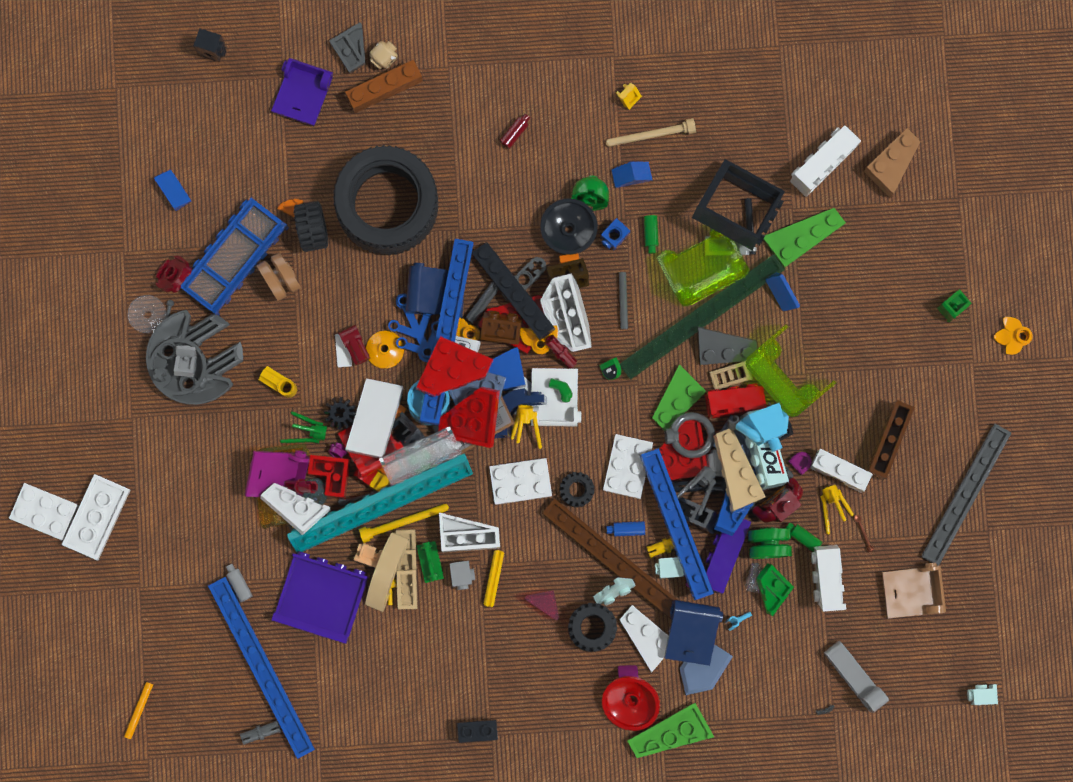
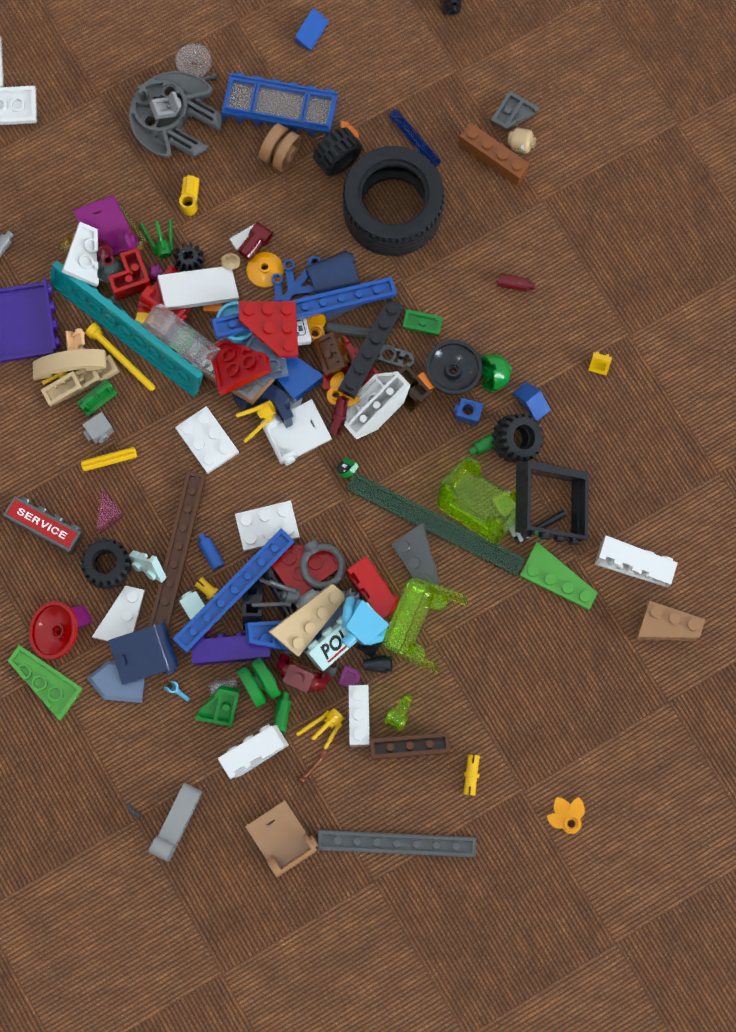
camera: 65 degrees right, 5 degrees down
(173, 274) = (237, 63): dark red plate -> none
(302, 89) = (455, 91): dark purple door -> none
(329, 149) = (414, 137): none -> clear blue axle
(362, 376) = (230, 261): none -> tan tile
(408, 431) = (202, 322): black hinge -> none
(466, 535) = (133, 413): white wedge -> none
(510, 233) = (422, 322): none -> green plate
(527, 666) = (43, 525): none -> brick
(564, 389) = (307, 434): green arm -> none
(585, 481) = (220, 480): black tyre -> none
(623, 301) = (414, 449): dark grey bar -> none
(654, 212) = (530, 434): none -> black tyre
(678, 398) = (351, 539): bright green wing -> none
(686, 127) = (600, 427): tan piece -> none
(715, 381) = (387, 562): tan slope -> none
(782, 292) = (494, 582): blue slope -> none
(802, 431) = (379, 664): none -> black cone
(857, 435) = (397, 716): none -> clear neon green piece
(939, 399) = (471, 775): none -> yellow pin
(954, 305) = (566, 746): green slope -> none
(982, 695) = (216, 949): light aqua brick -> none

